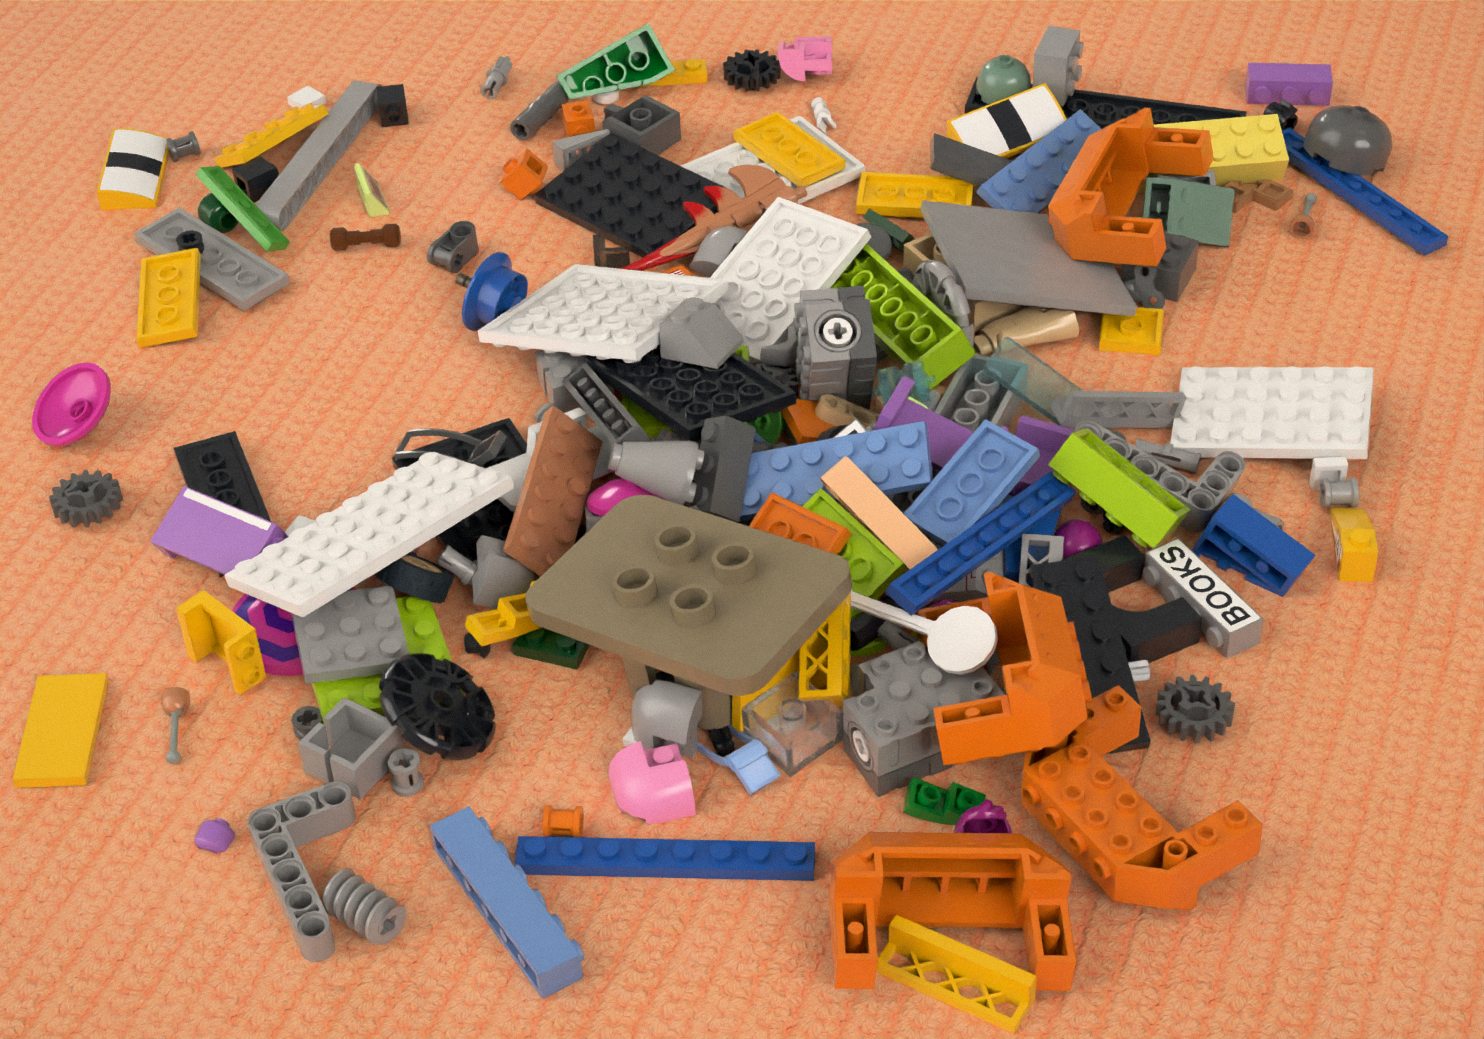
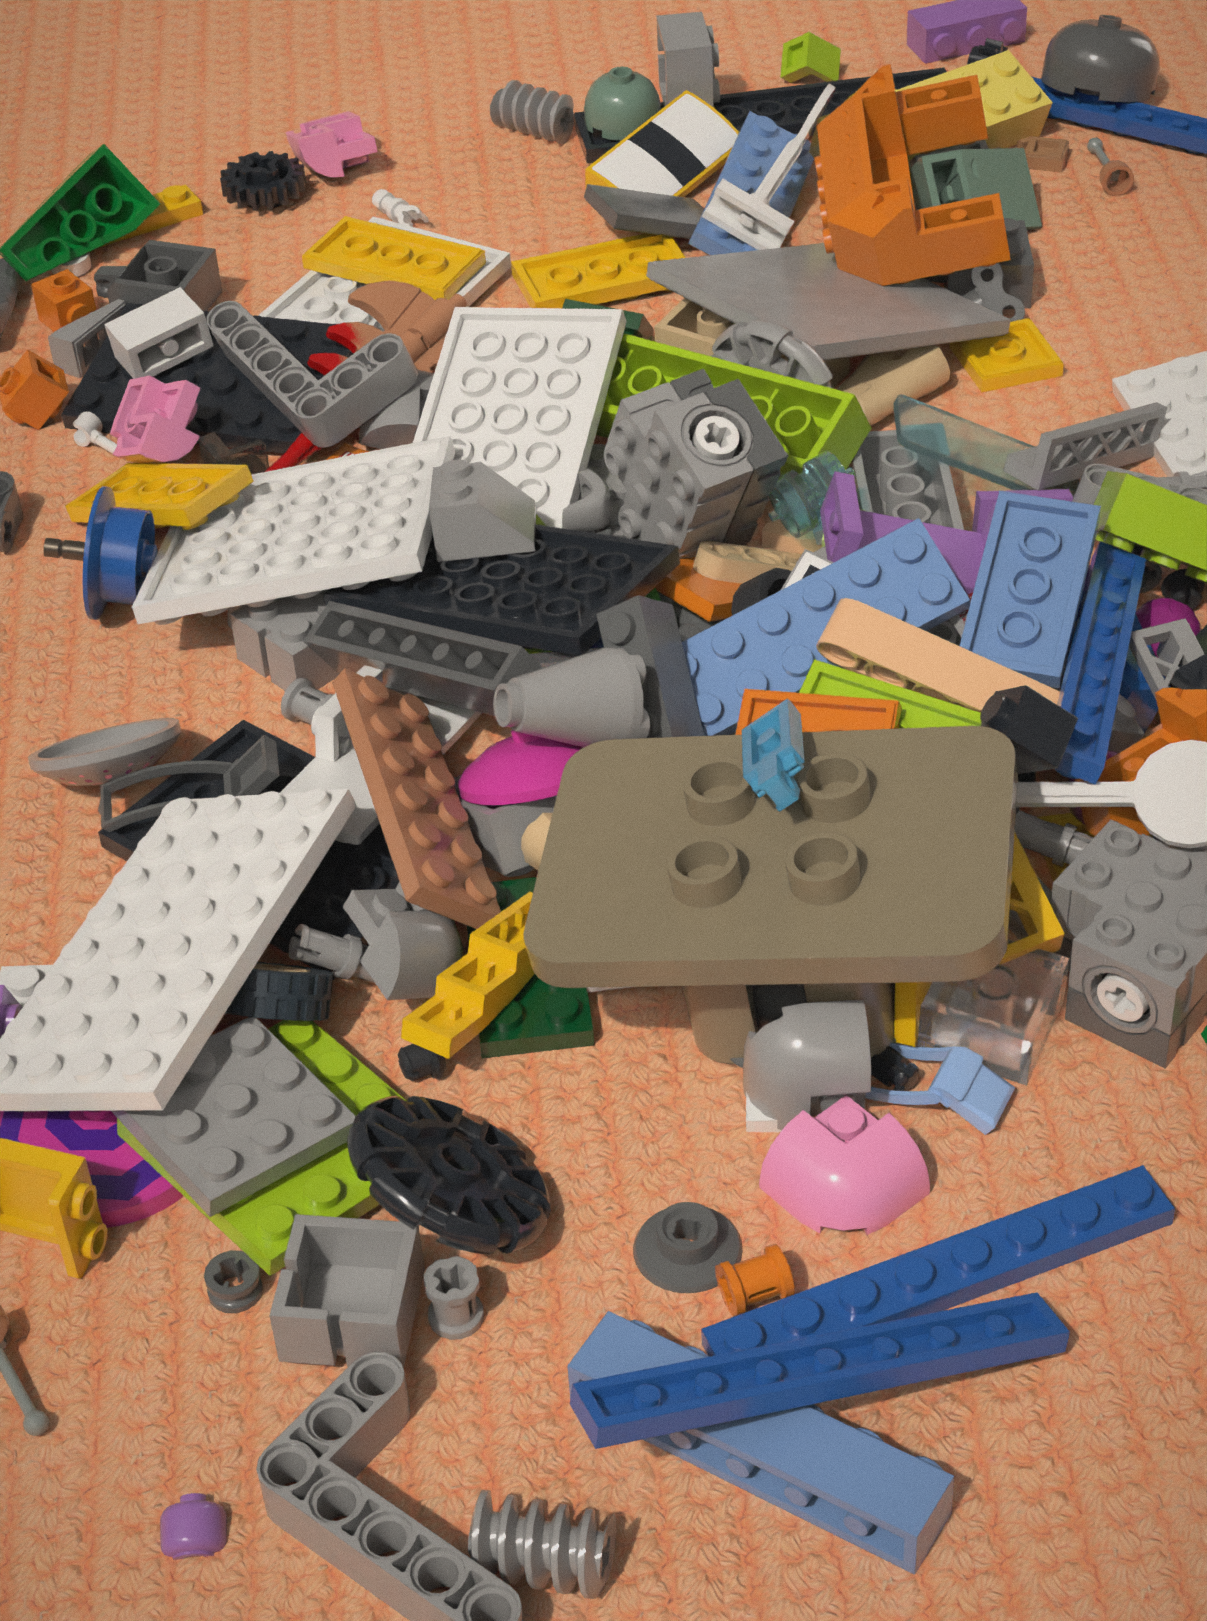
camera: 25 degrees left, 0 degrees up
(422, 412) = (106, 752): none -> light grey dish
(532, 796) = (682, 1263): none -> dark grey piece
(544, 211) = (89, 431): none -> white hand
(551, 875) = (815, 1369): none -> blue plate
(552, 264) = (172, 492): none -> yellow plate
(574, 217) = (154, 420): none -> bright pink brick
(608, 161) = (159, 334): none -> white brick
(672, 236) = (320, 408): none -> light grey beam
(709, 533) = (774, 754): none -> dark azure hinge
(873, 567) = (1033, 725): none -> black slope
(951, 68) = (533, 111): none -> light grey piece
(1020, 186) = (750, 215): none -> white piece
(1162, 79) = (808, 56): none -> lime panel

